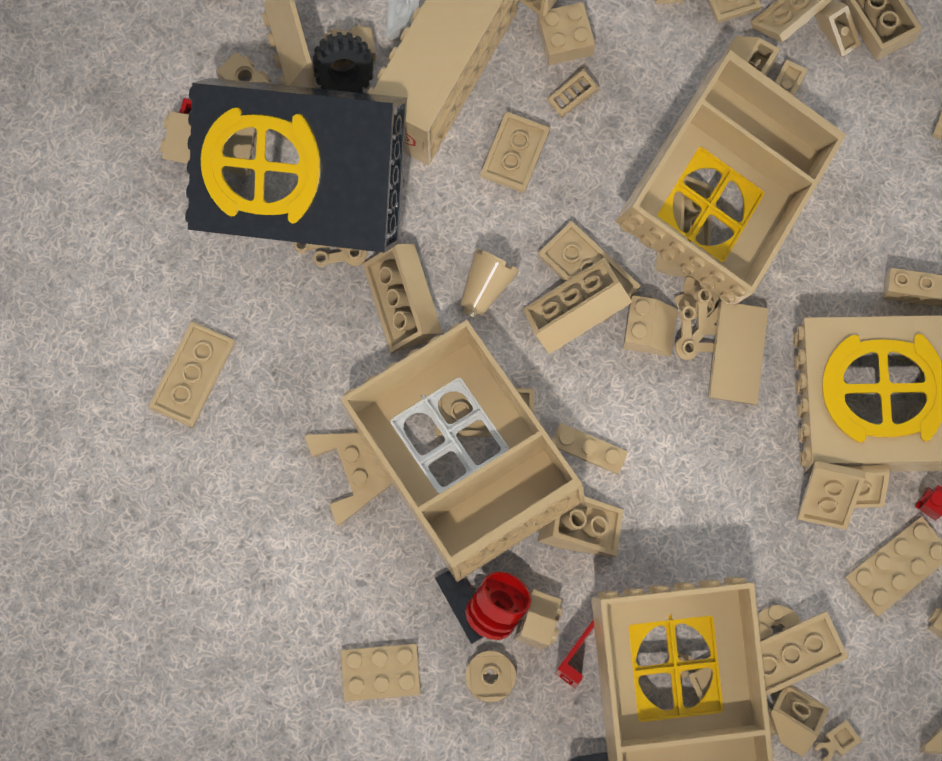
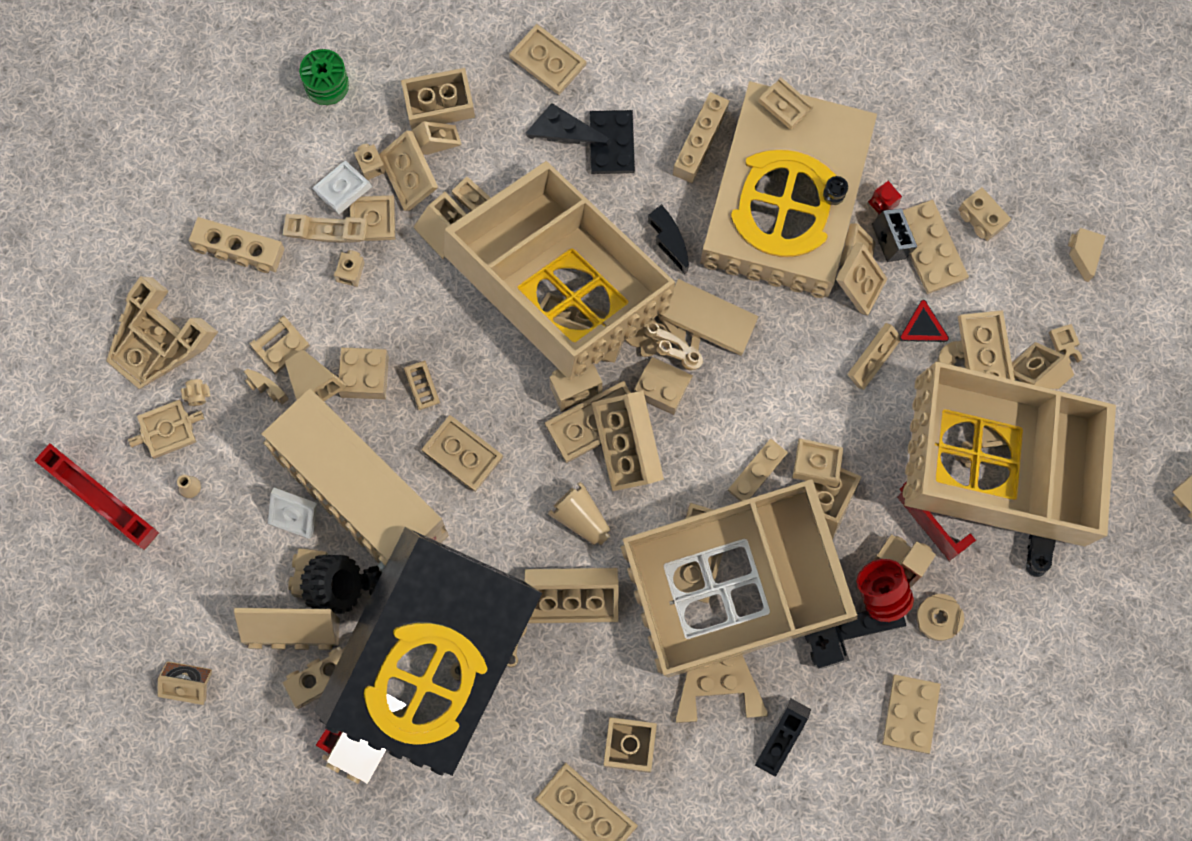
camera: 75 degrees left, 0 degrees up
(267, 394) = (630, 745): none -> tan brick
(320, 545) = (783, 737): none -> black slope
(423, 566) = (832, 653): none -> black brick
(616, 505) = (818, 462): none -> tan tile
(618, 244) = (575, 391): none -> tan brick
(753, 536) = (874, 356): none -> tan plate
(804, 580) = (924, 326): none -> piece
(812, 289) = (669, 237): none -> black slope
(896, 147) = (561, 126): none -> black wing
(896, 520) = (894, 235): none -> black brick
(899, 203) = (619, 155): none -> black plate
(919, 430) = (837, 186): none -> black wheel

